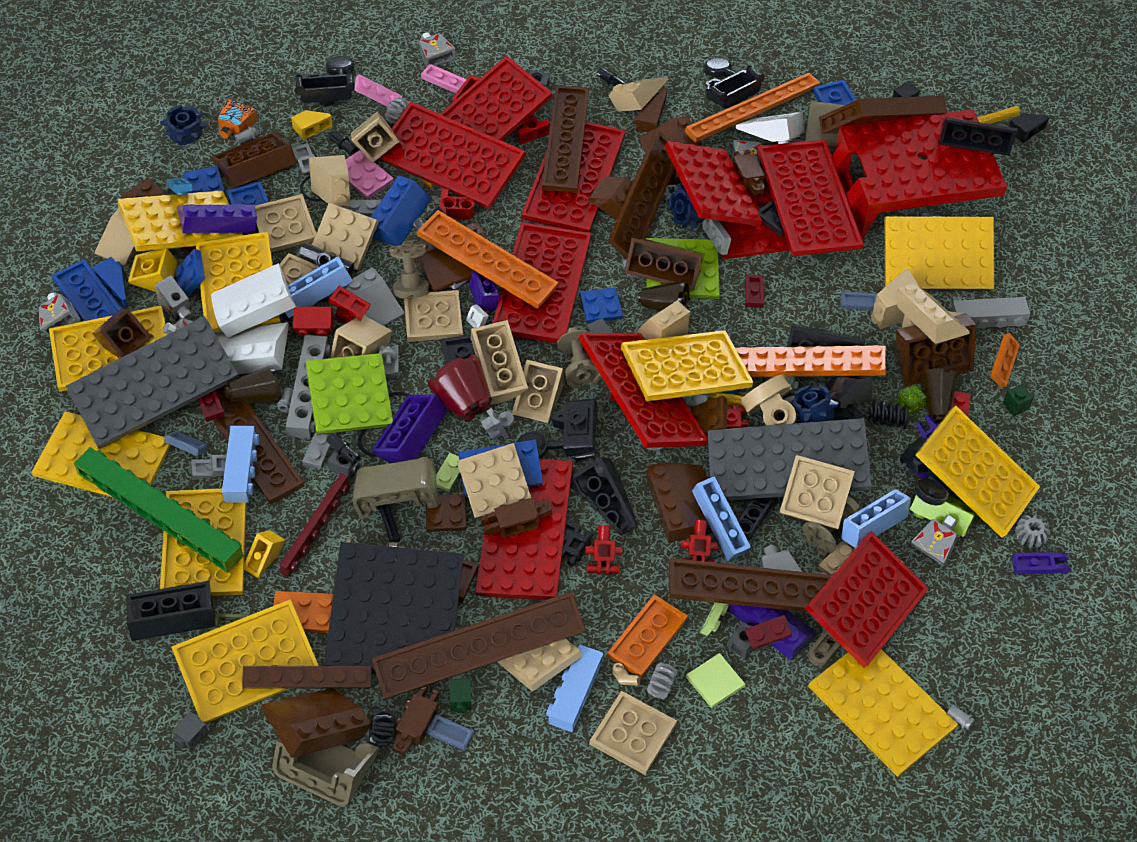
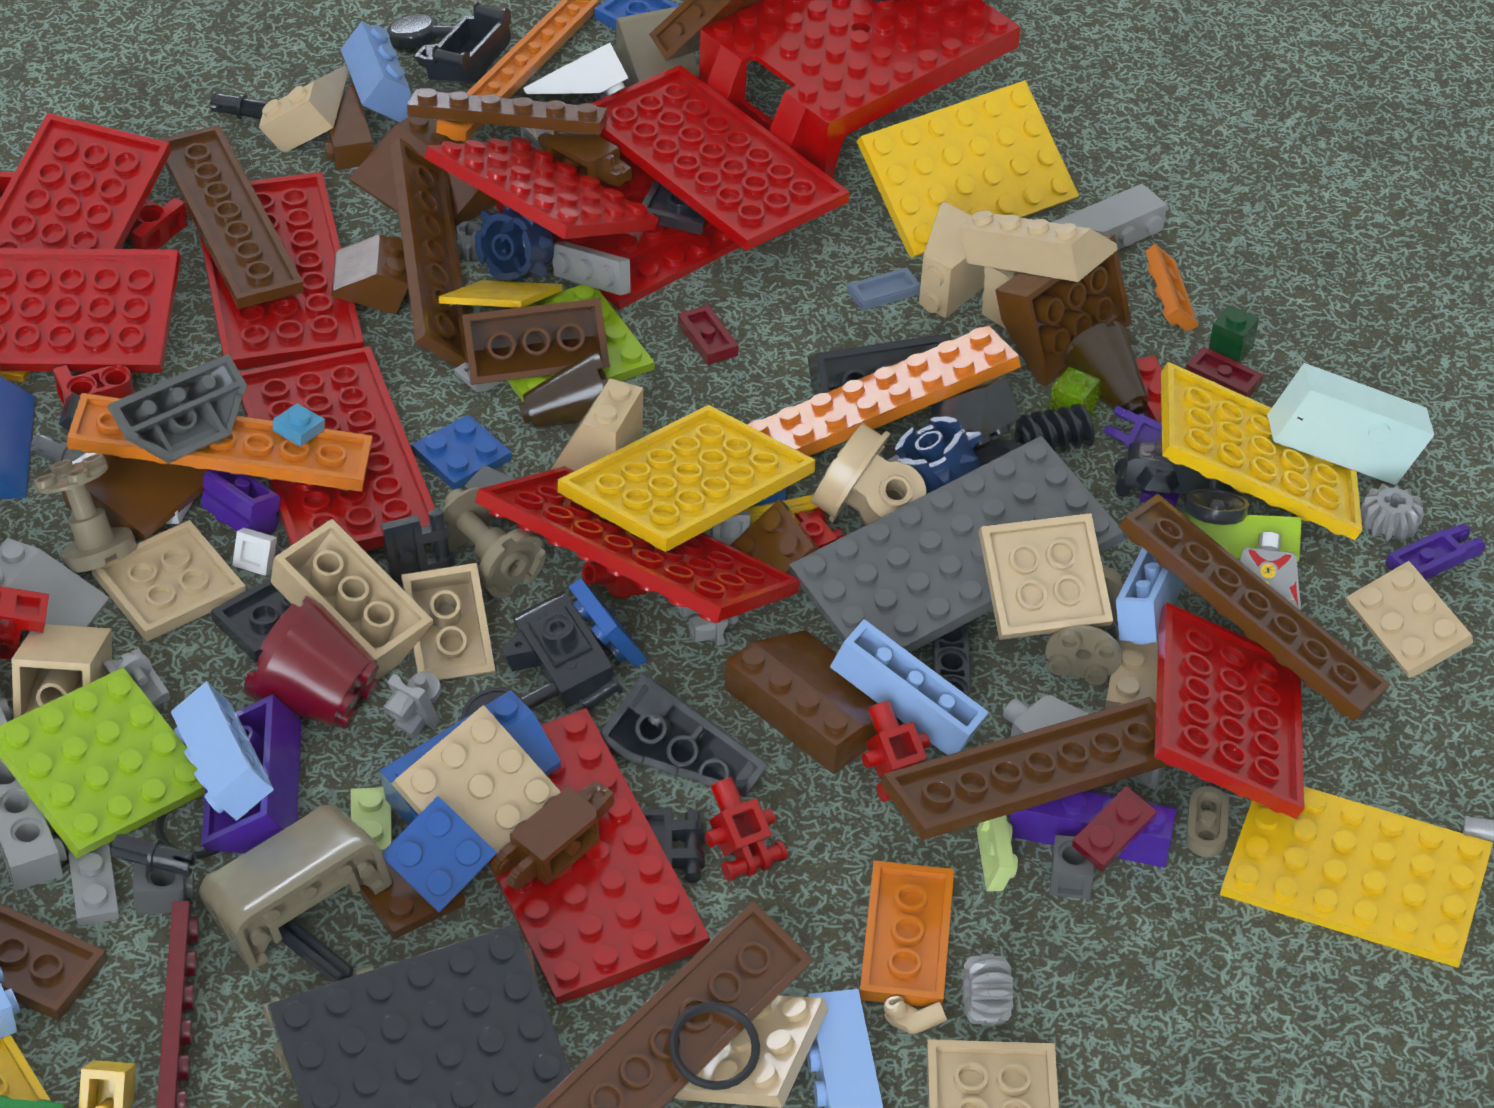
camera: 30 degrees left, 10 degrees down
(399, 412) = (220, 752): none -> light blue brick
(459, 503) = (438, 854): none -> blue plate
(471, 239) = (183, 410): none -> dark grey wedge
(521, 669) = (709, 1084): none -> black tyre
(525, 264) = (298, 424): none -> dark azure plate
(539, 345) = (405, 545): none -> black plate
(606, 423) = (606, 625): none -> blue plate
(665, 230) = (500, 293): none -> yellow piece
(681, 87) = (377, 71): none -> medium blue slope
(715, 680) = (1068, 953): yellowish green tile -> none
(721, 135) = (507, 112): none -> reddish brown plate
(916, 552) = (1254, 607): none -> reddish brown plate
(999, 419) = (1225, 372): none -> dark red plate
(999, 592) = (1409, 620): none -> tan plate
(1034, 477) = (1350, 424): none -> light aqua brick

